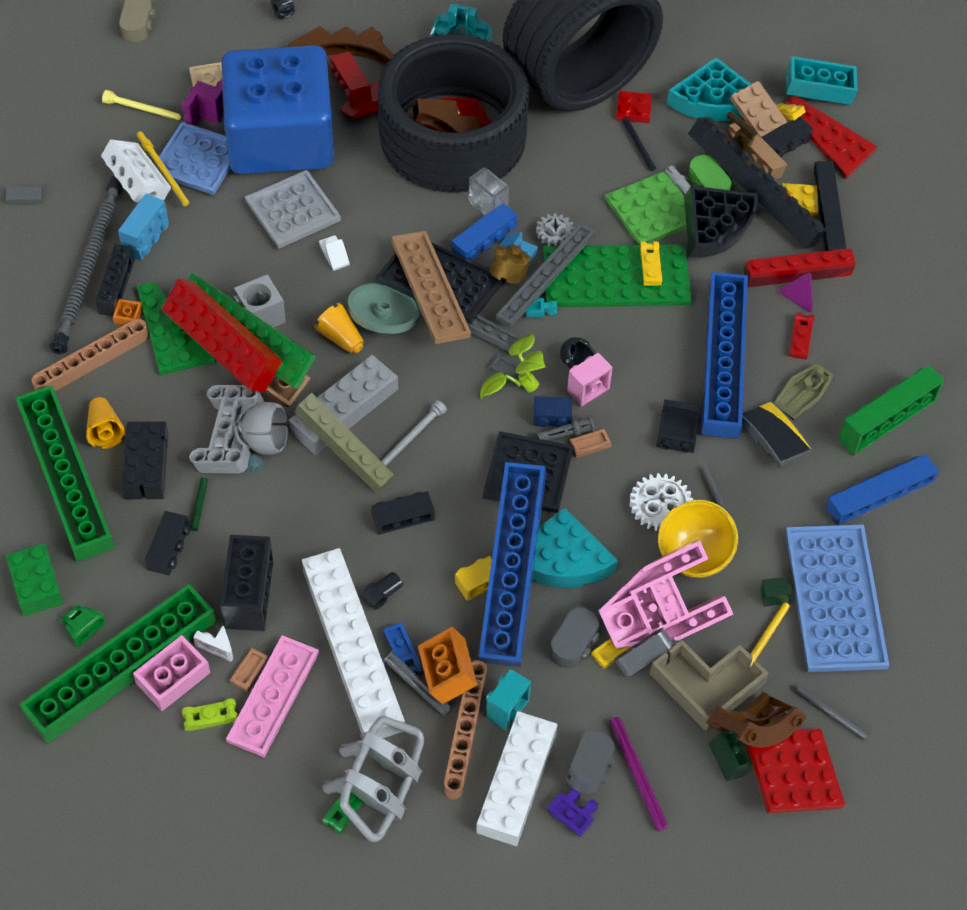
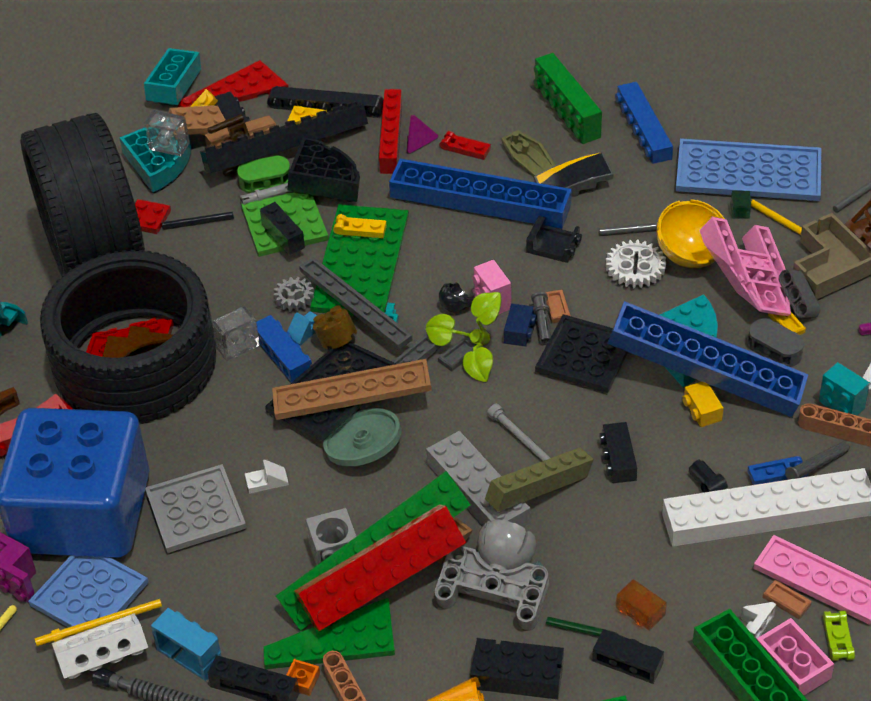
camera: 75 degrees left, 10 degrees down
(216, 551) = (641, 604): none -> clear orange brick
(247, 582) = (699, 576): black brick -> none
(340, 329) = (379, 477): light orange cone -> none
(447, 665) = (807, 427): orange brick -> none
(628, 201) = (282, 228): none -> black brick
(717, 83) = (167, 133): none -> clear brick

